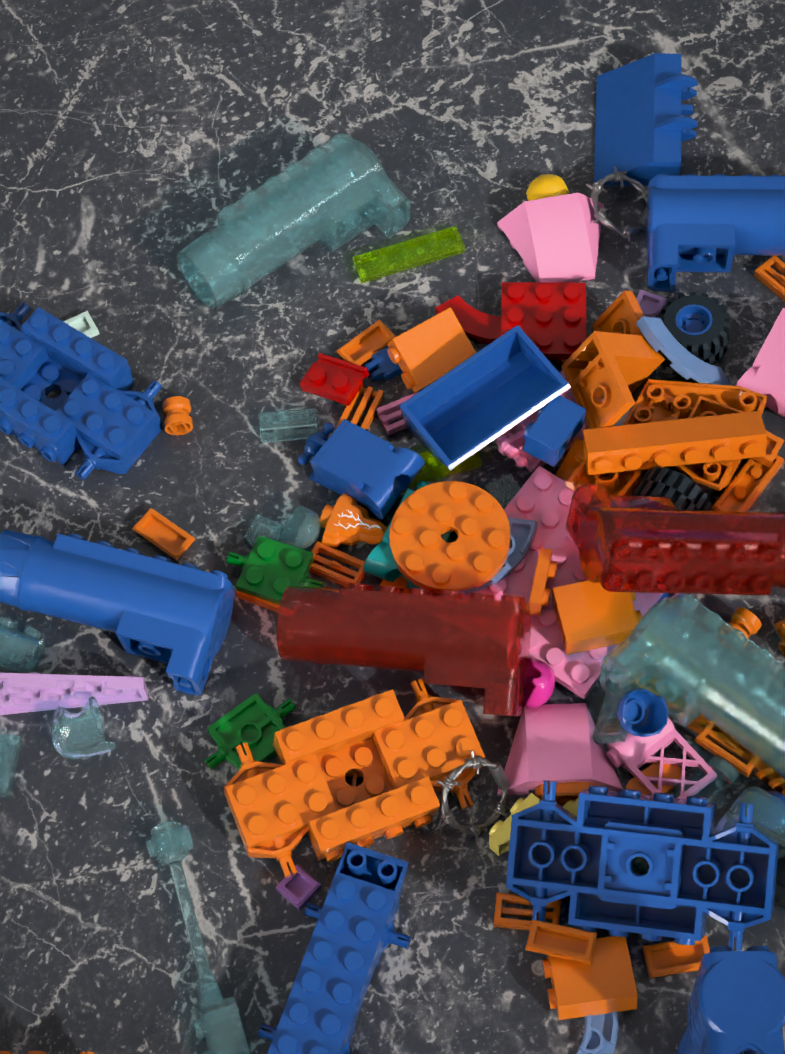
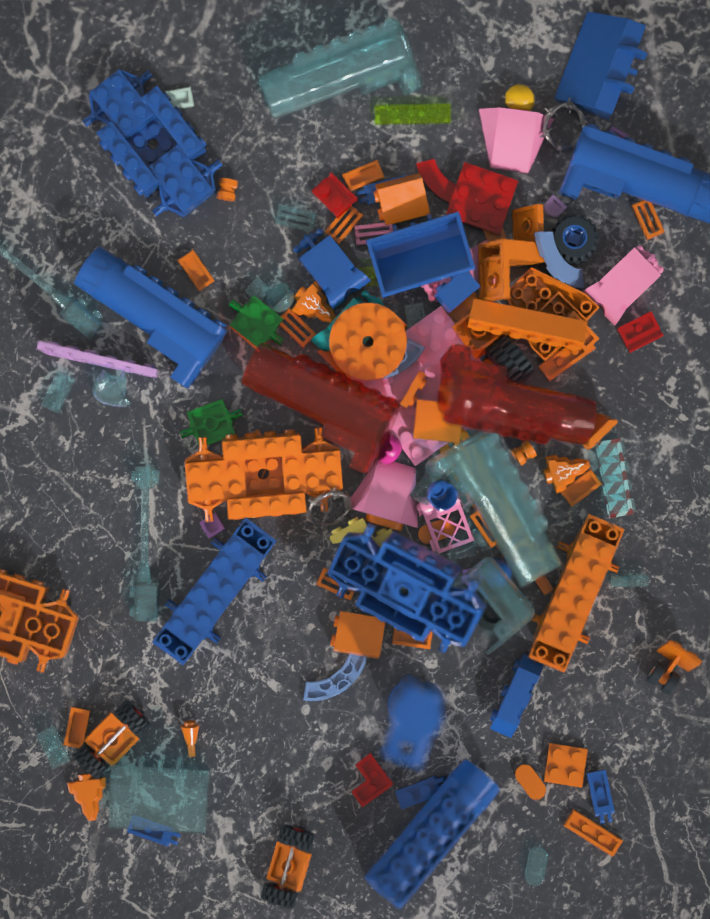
camera: 10 degrees right, 25 degrees up
(561, 941) = (348, 612): orange tile -> none

